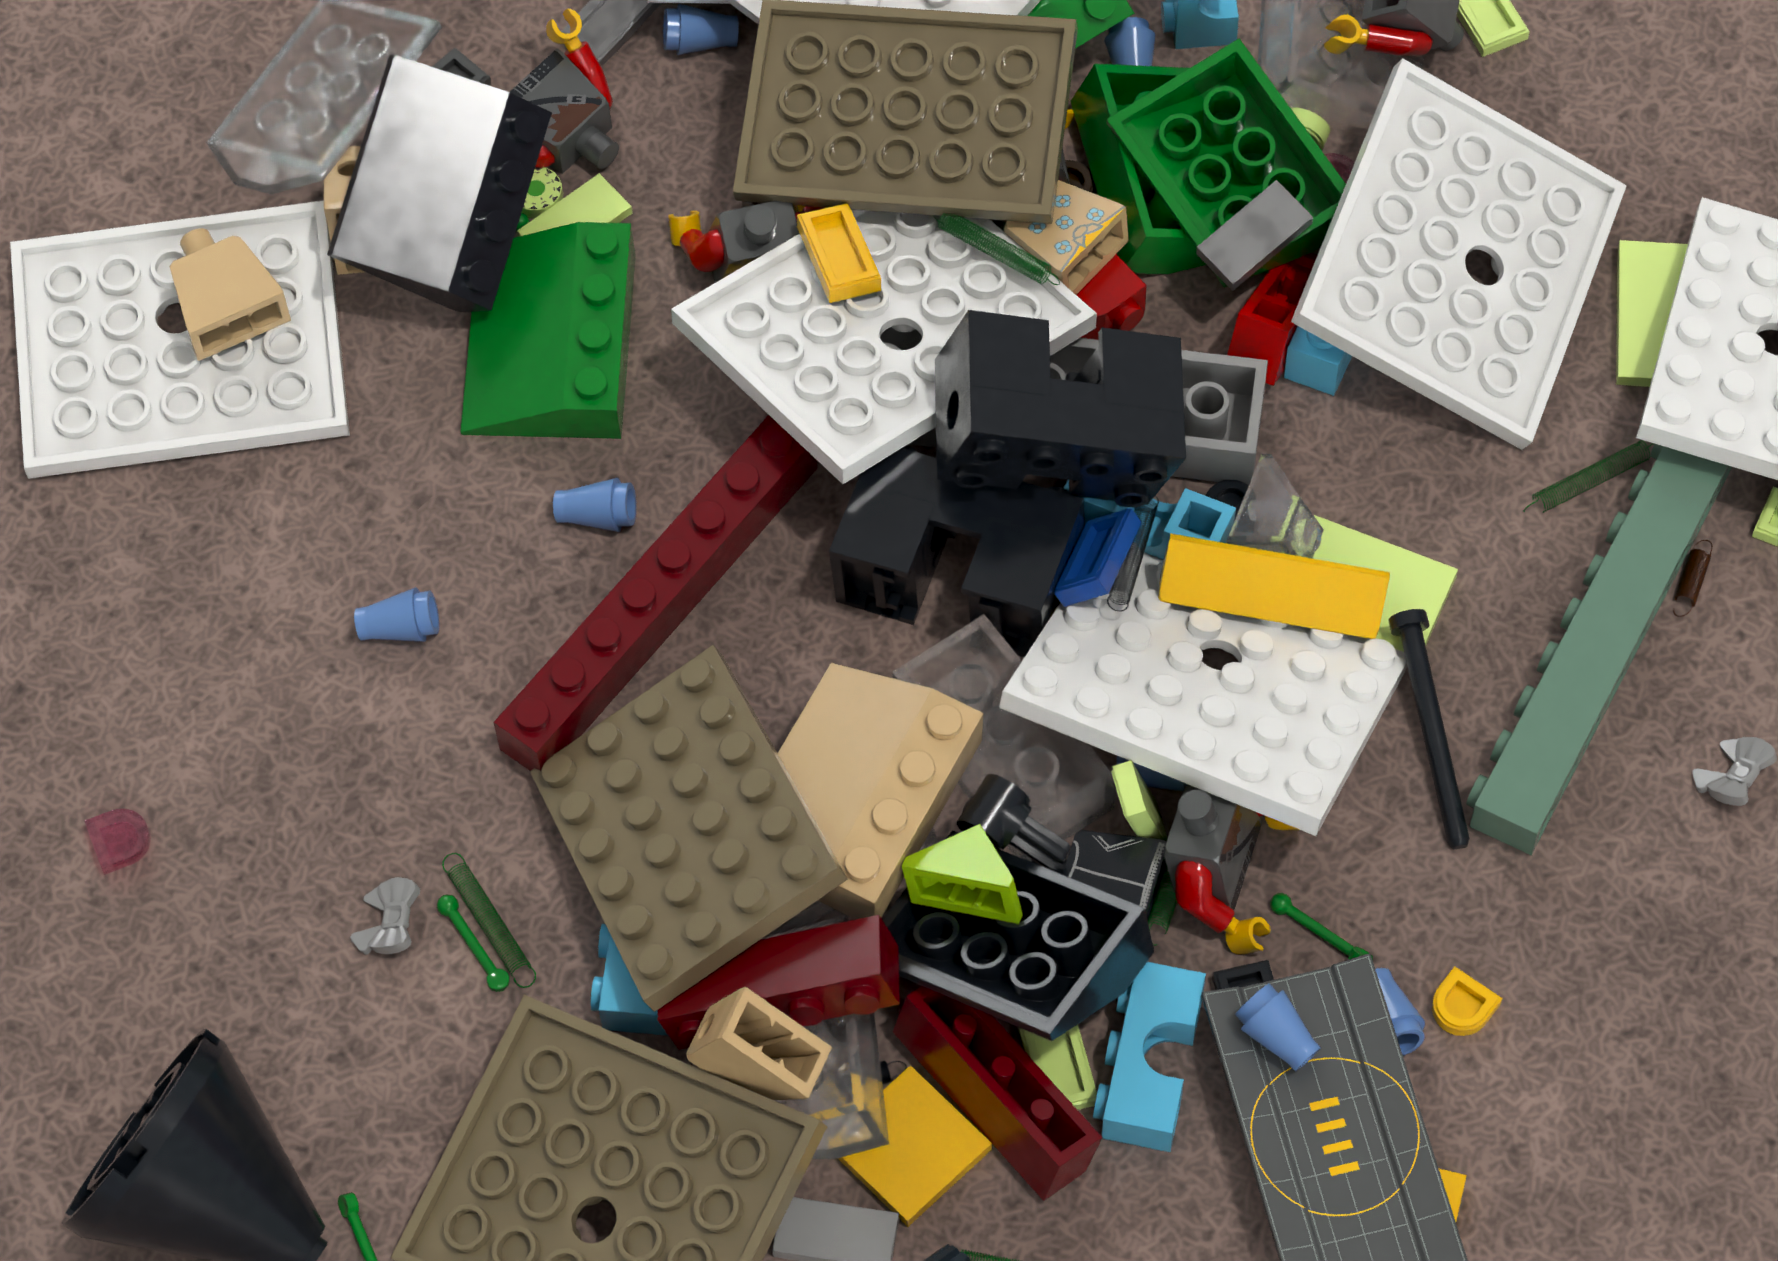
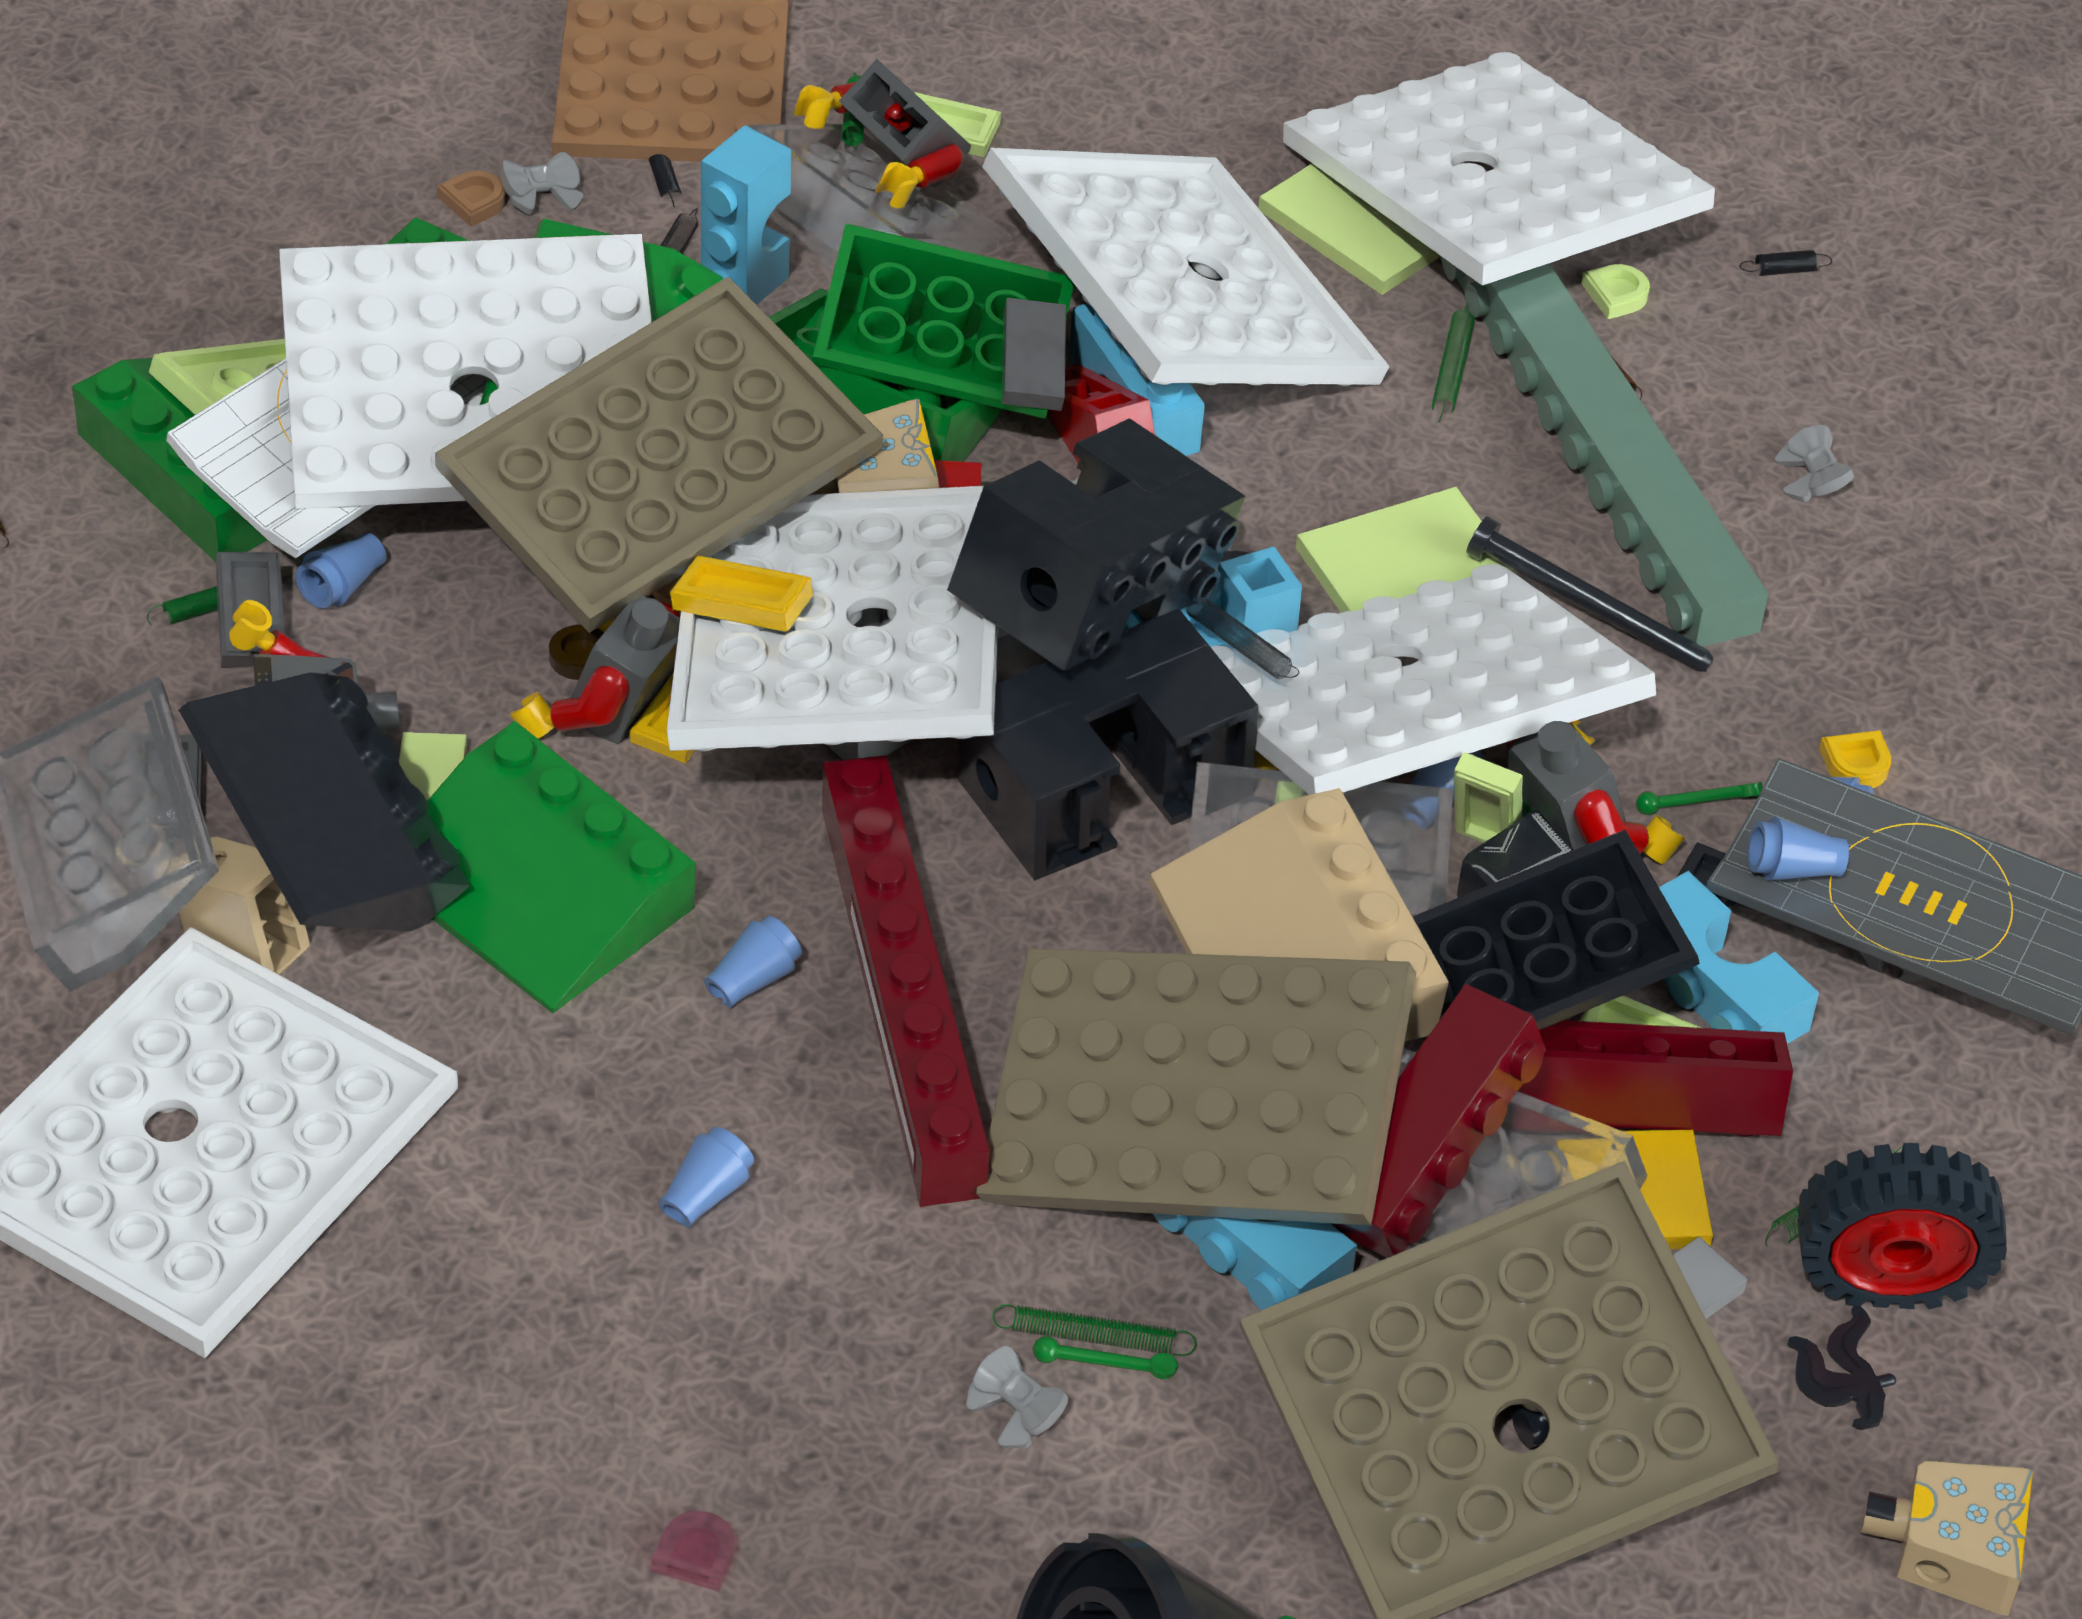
camera: 55 degrees left, 15 degrees down
(224, 293) = (213, 1049): tan torso -> none
(758, 1047) = (1500, 1156): tan torso -> none
(963, 877) = (1478, 917): lime slope -> none
(1005, 818) = (1432, 870): black axle -> none
(1038, 273) = (862, 508): green piece -> none
(1097, 557) = (1239, 648): blue tile -> none
(1273, 586) = (1366, 582): yellow slope -> none
(1275, 514) = (1310, 542): clear slope -> none

